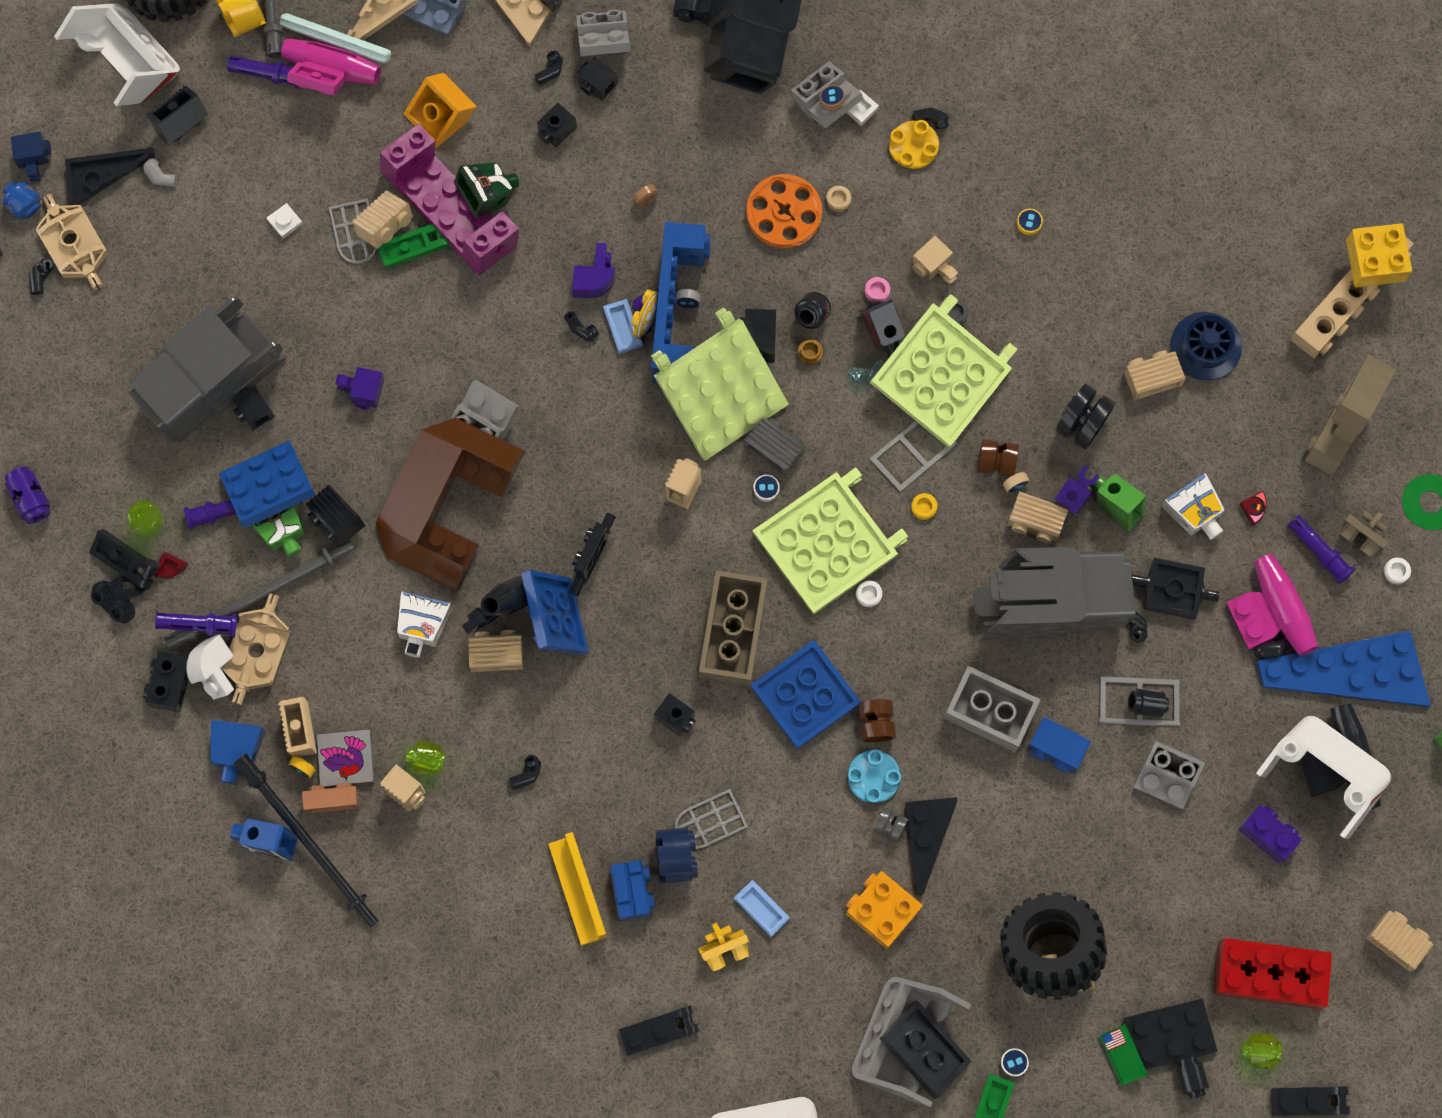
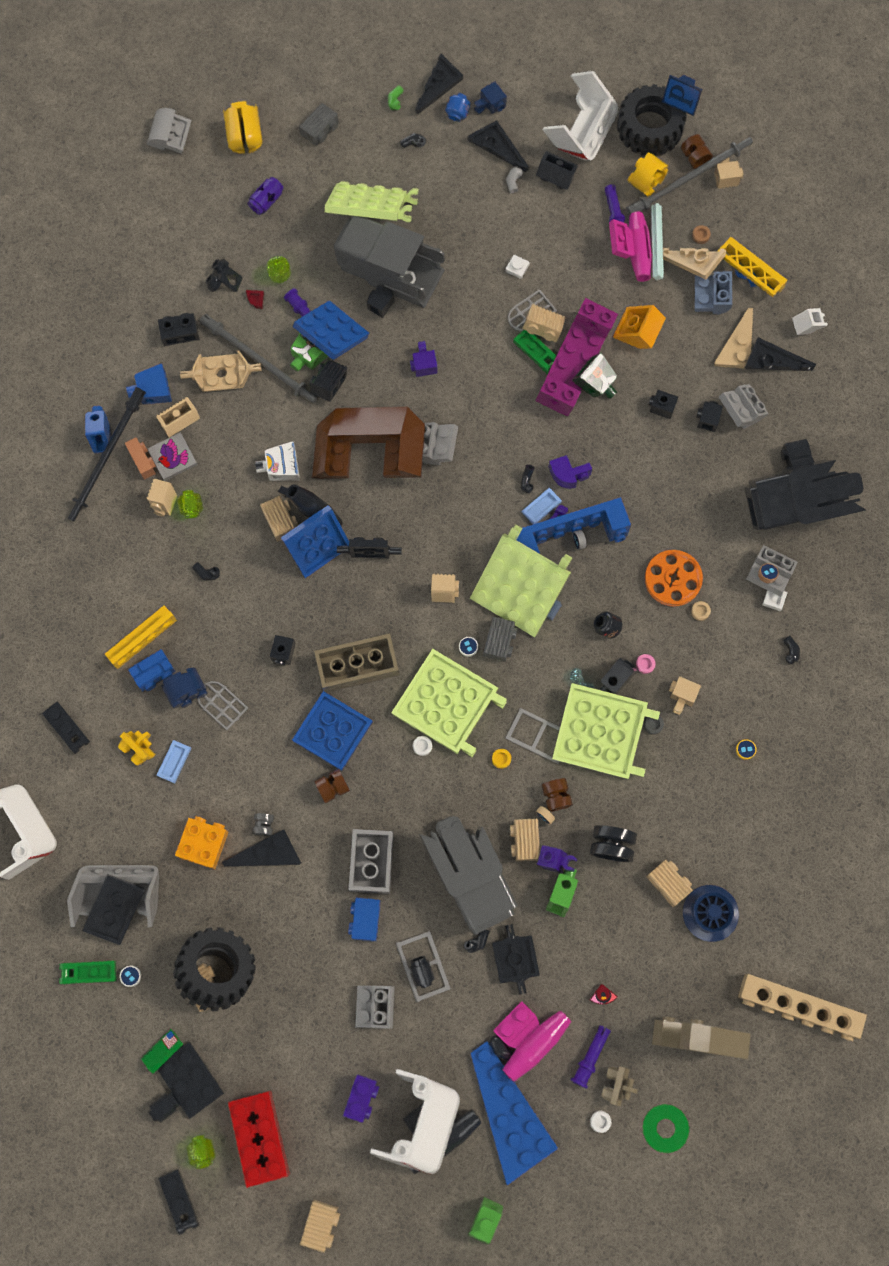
camera: 70 degrees right, 0 degrees up
(73, 259) = (439, 159): tan plate -> none
(112, 361) = (370, 201): none -> yellowish green plate
(124, 559) = (247, 269): black plate -> none
(205, 665) = (196, 343): white brick -> none
(210, 624) = (223, 335): dark purple pin -> none
(301, 766) = (155, 431): yellow tile -> none
(552, 69) = (703, 386): black arm -> none
(645, 195) = (640, 482): medium nougat tile -> none
(645, 318) = (546, 512): yellow dish -> none
(762, 328) = (575, 596): black brick -> none
(810, 352) = (579, 636): pearl gold plate -> none
(874, 776) = (293, 800): medium azure dish -> none
(914, 144) = (765, 646): yellow dish -> none
(1196, 507) = (582, 952): torso -> none
(1378, 255) = (835, 1014): yellow brick -> none

